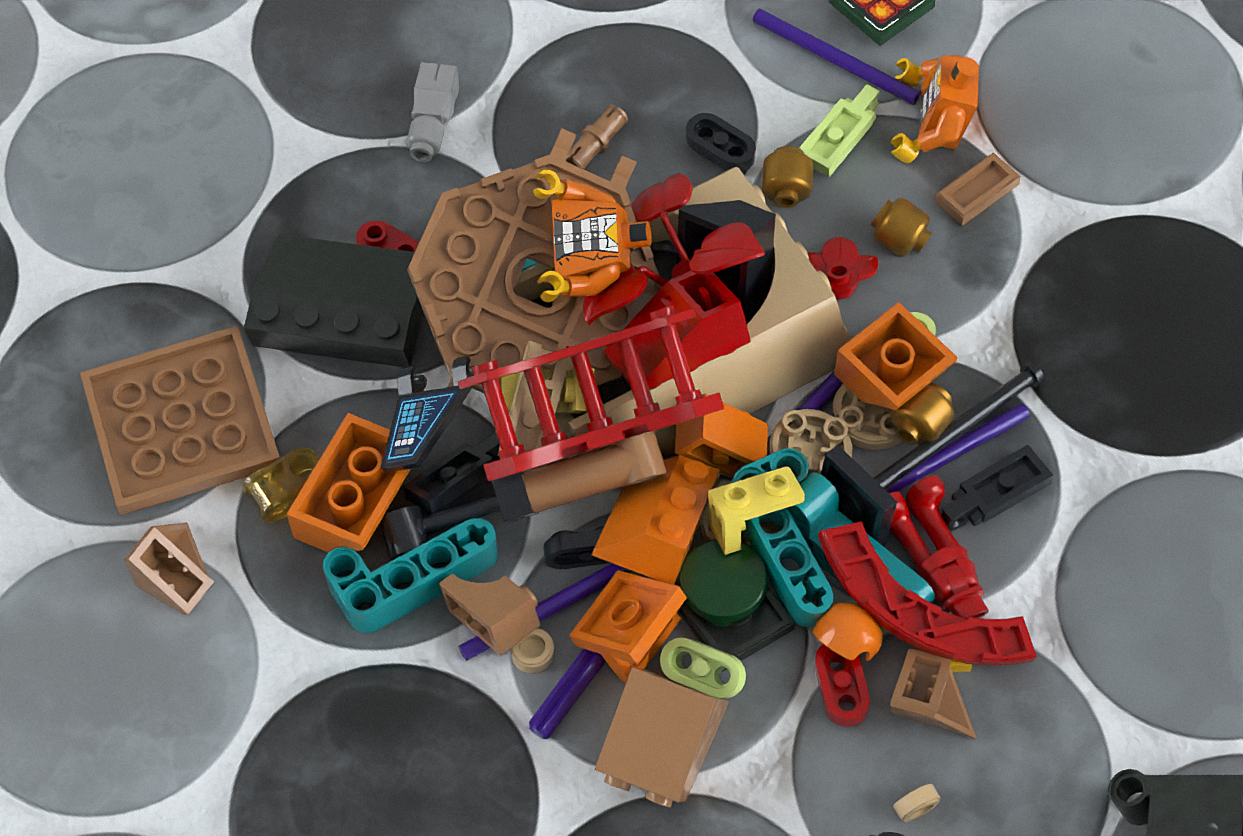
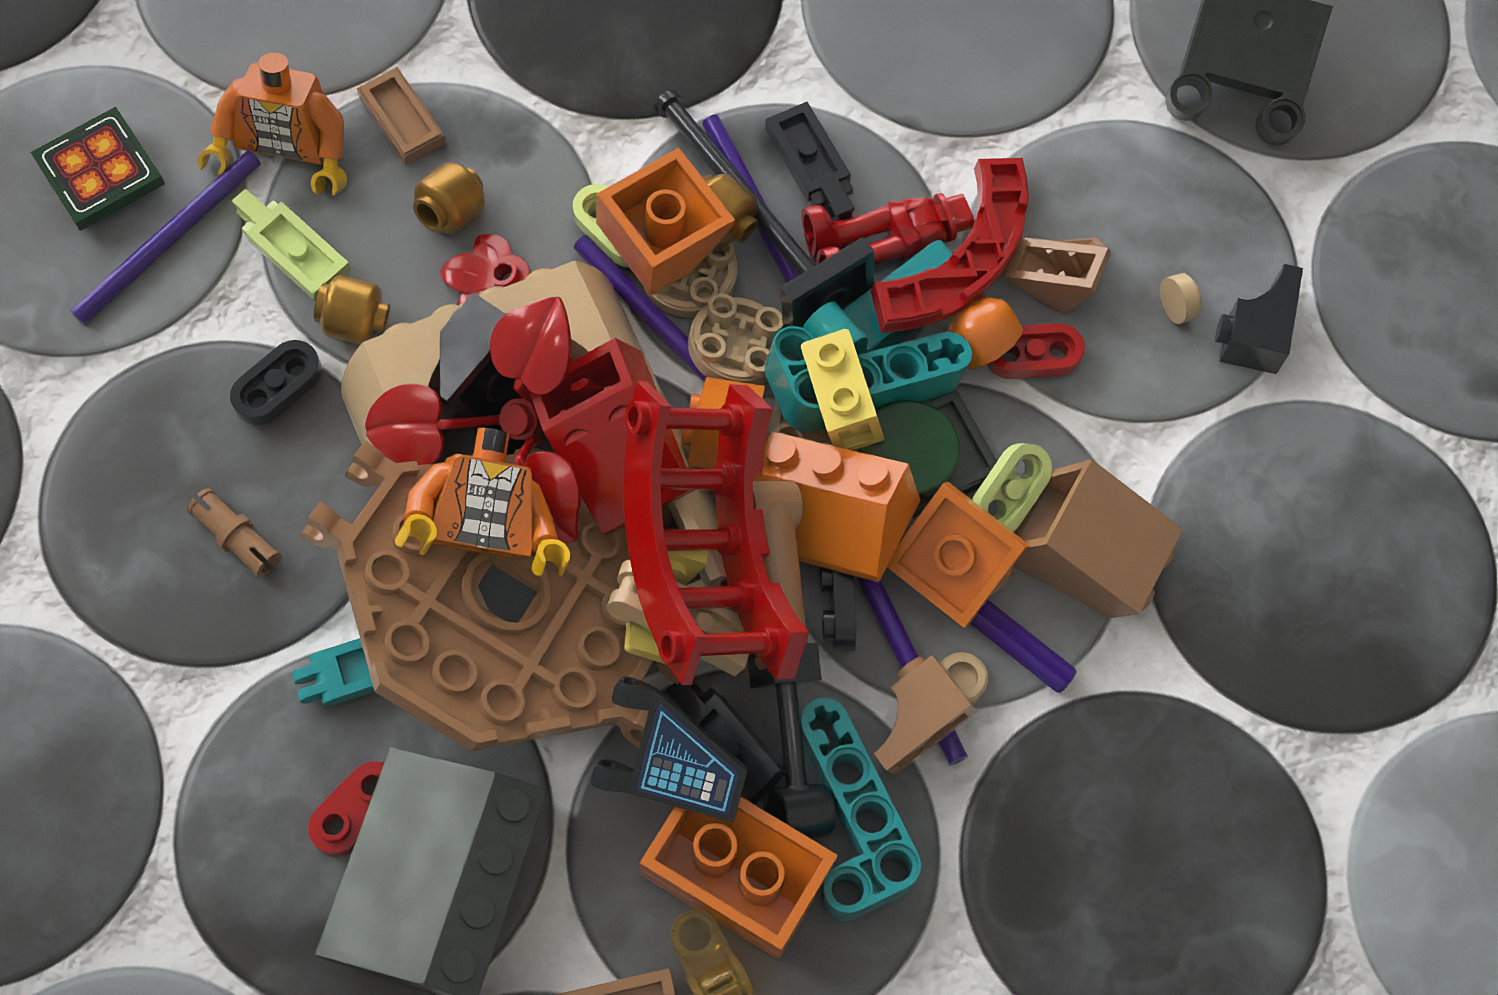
camera: 90 degrees left, 10 degrees up
(433, 107) = (140, 736): light grey piece -> none

